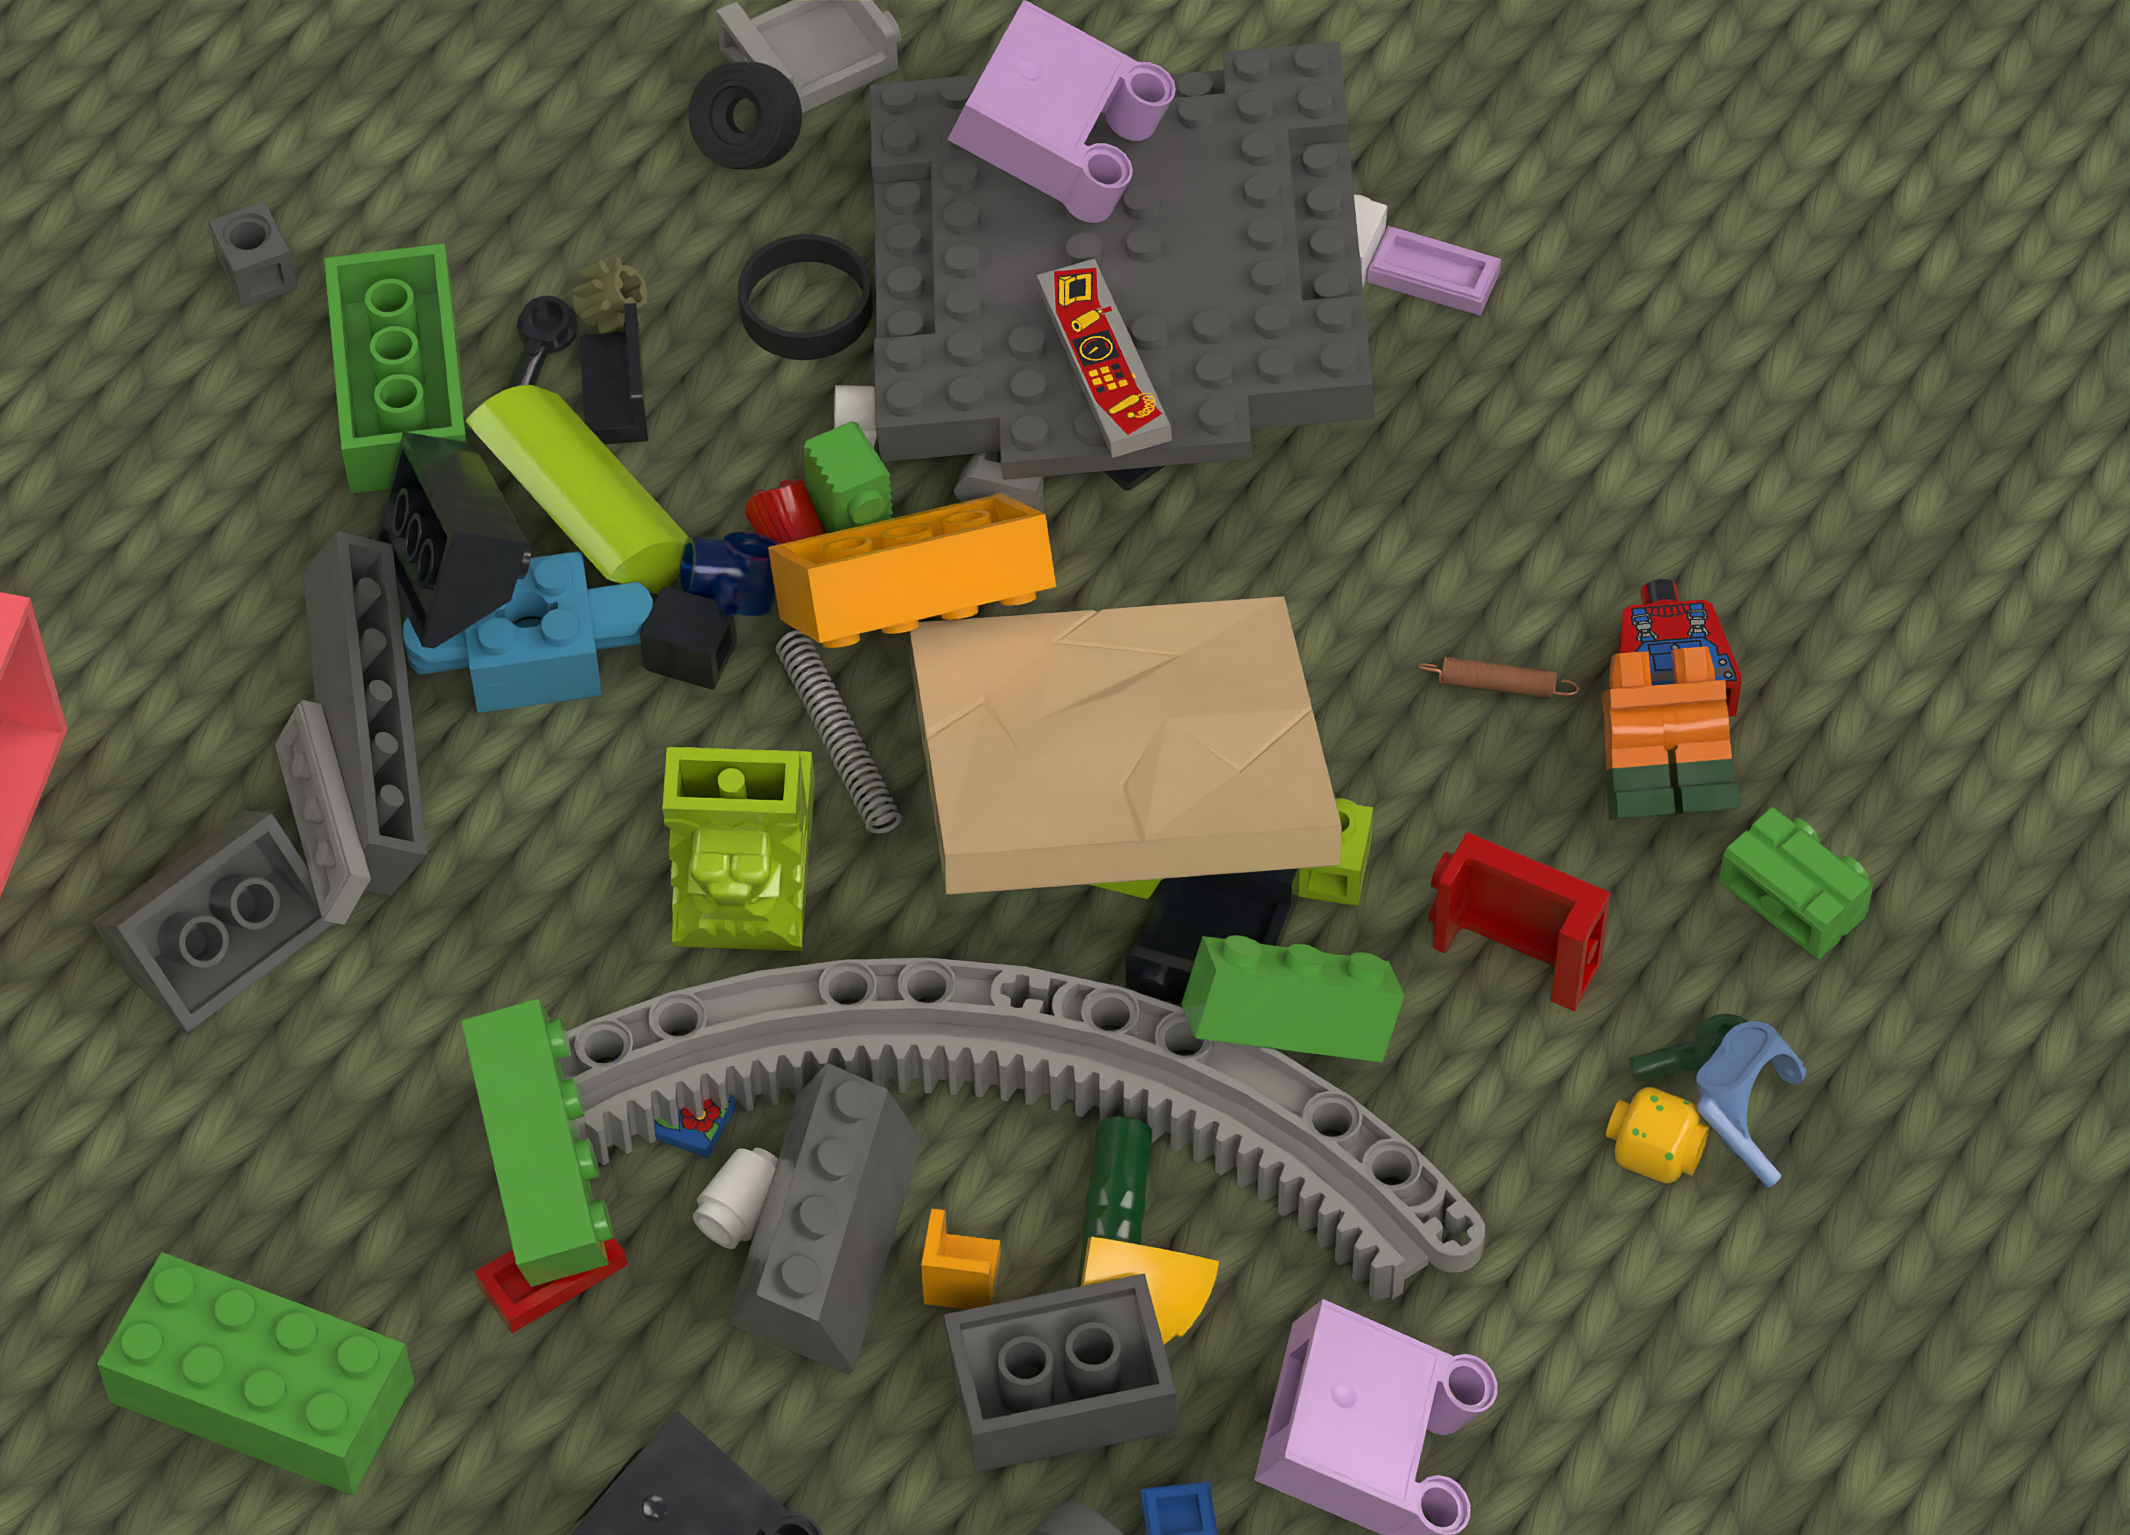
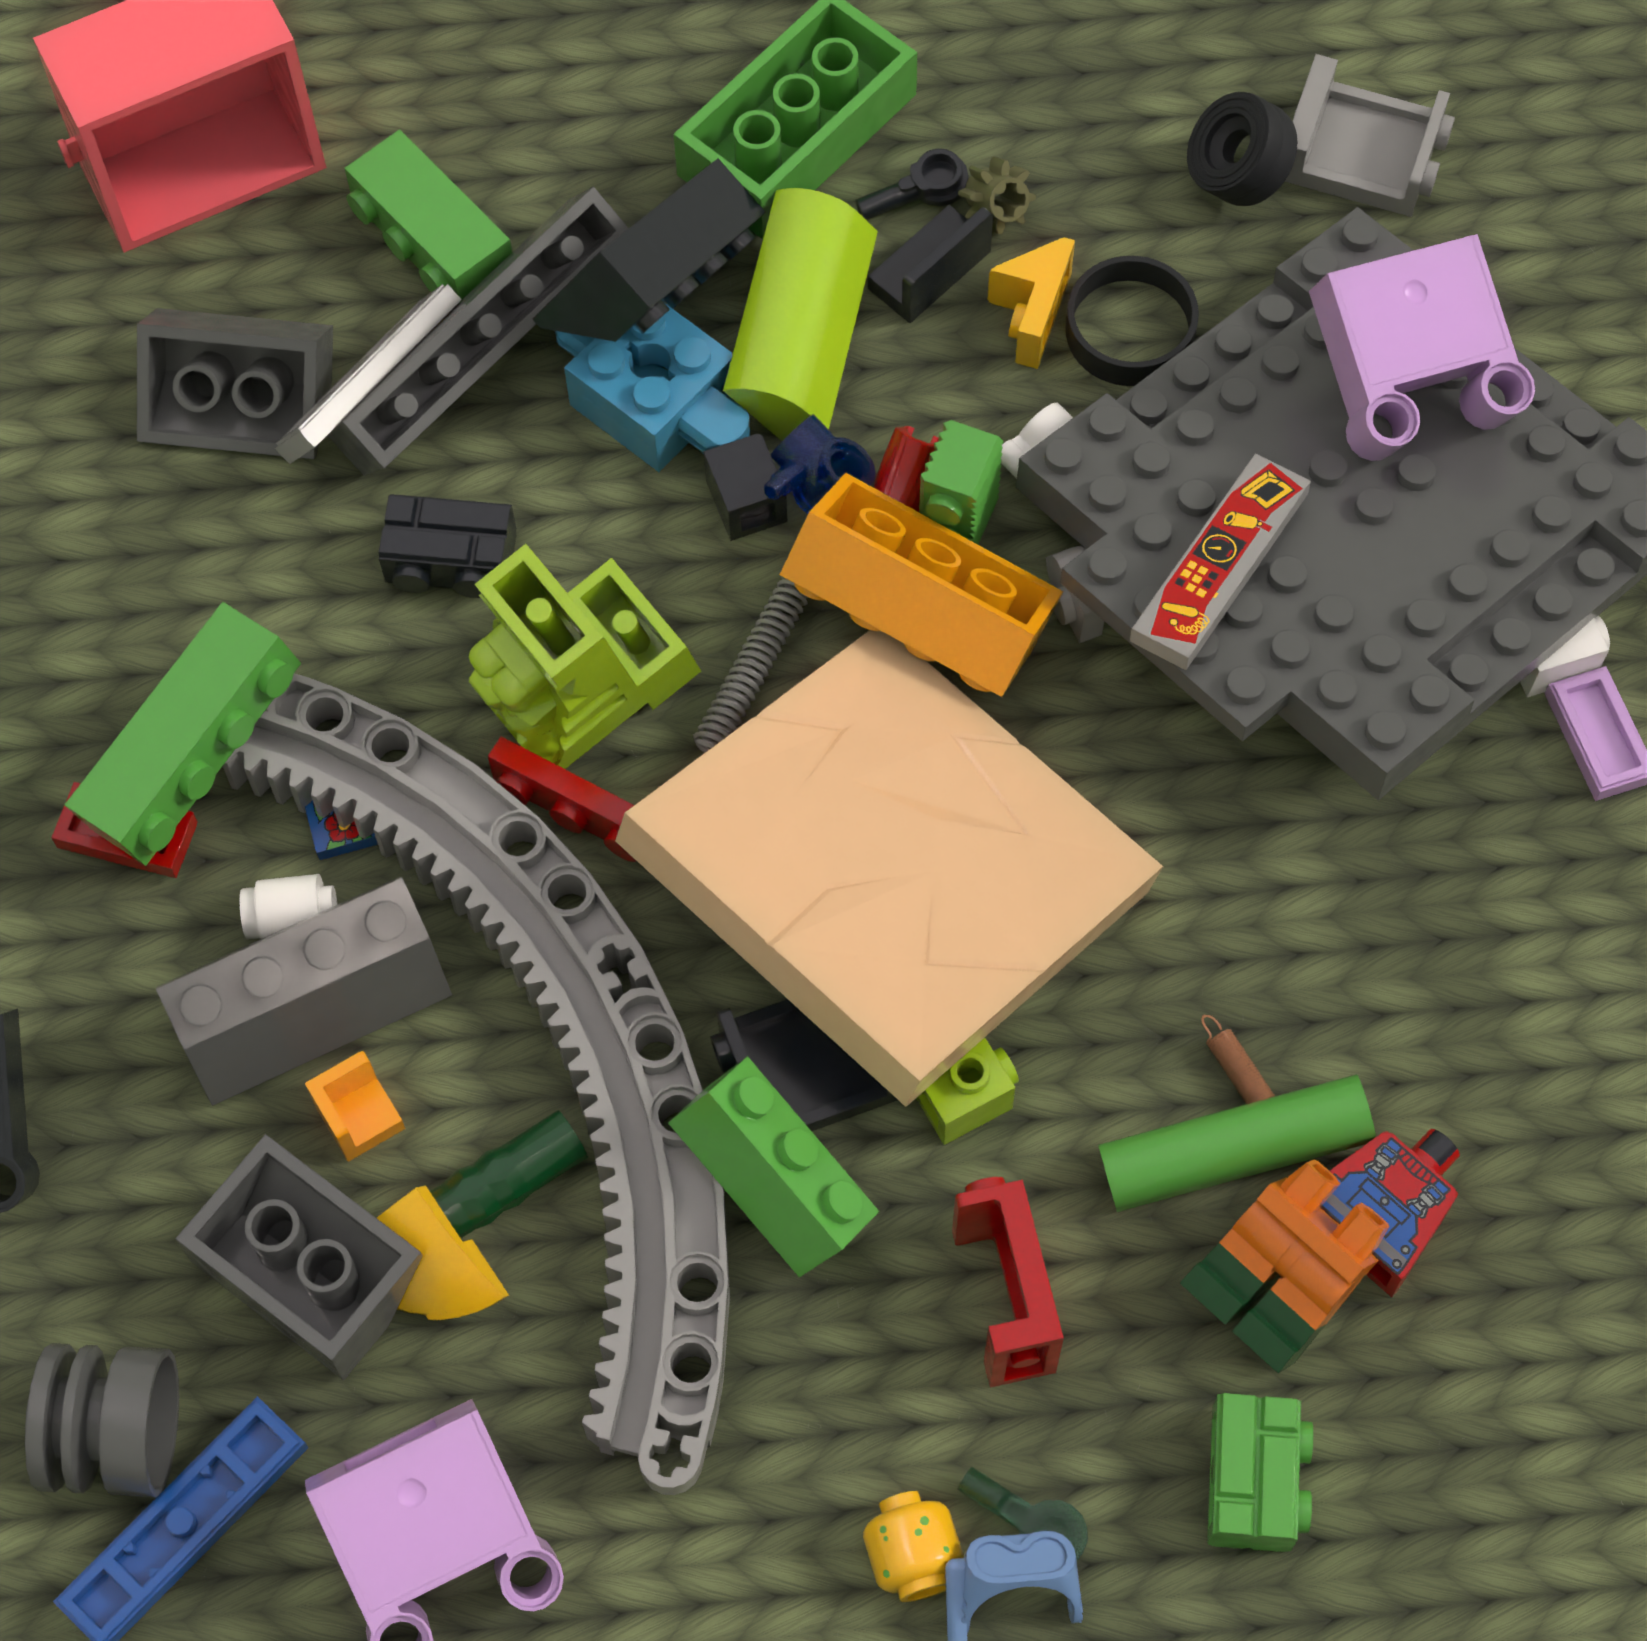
camera: 50 degrees right, 10 degrees up
(210, 681) = (424, 216): none -> bright green brick
(529, 870) = (444, 542): none -> black brick
(722, 332) = (1034, 290): none -> yellow slope
(876, 926) = (567, 797): none -> red plate
(1541, 710) = (1237, 1142): none -> bright green brick

